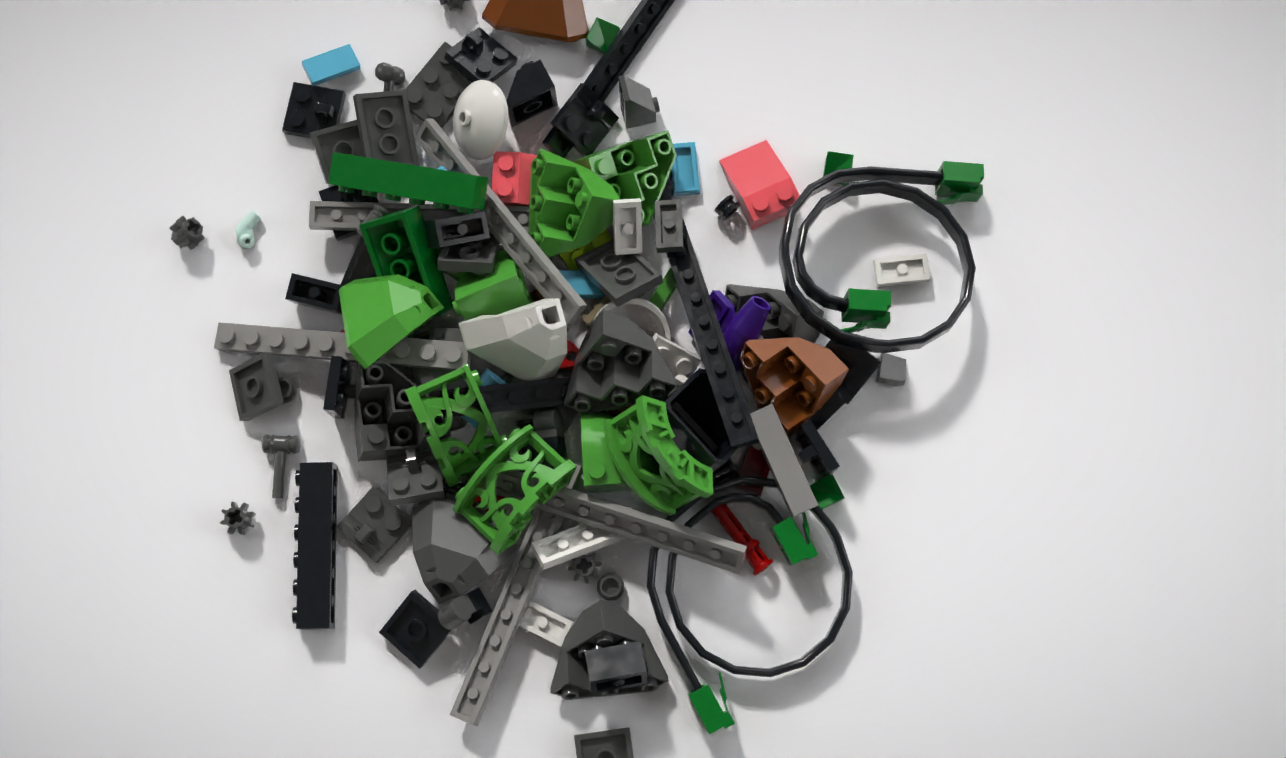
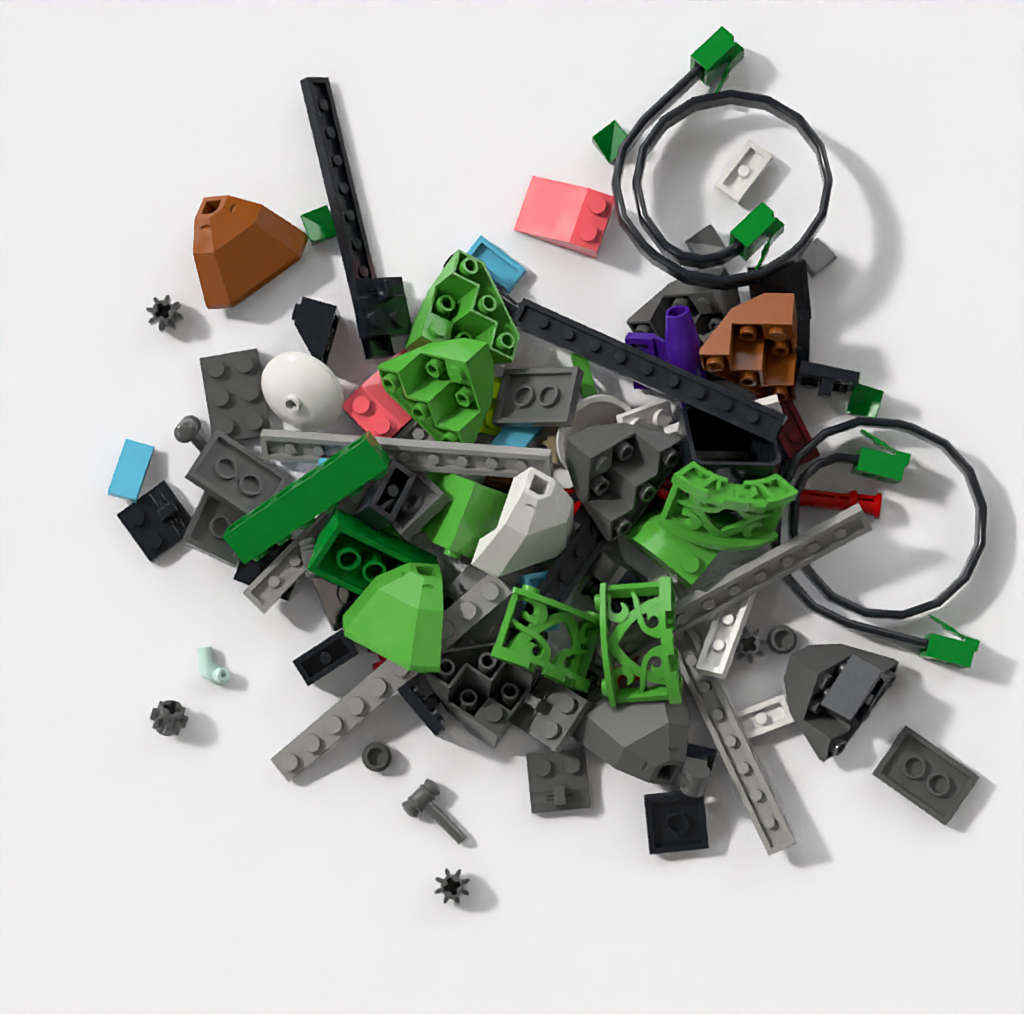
camera: 45 degrees left, 5 degrees up
(256, 386) = (356, 775): dark grey hinge -> none
(316, 546) = (534, 842): black brick -> none
(480, 57) = (243, 342): black hinge -> none
(627, 226) = (511, 357): white plate -> none
(636, 103) = (408, 252): dark grey slope -> none
(669, 226) = (540, 323): dark grey plate -> none
(727, 207) = (561, 260): black bush -> none
(783, 461) = (815, 412): light grey tile -> none
(831, 285) = (705, 241): none -> dark grey slope

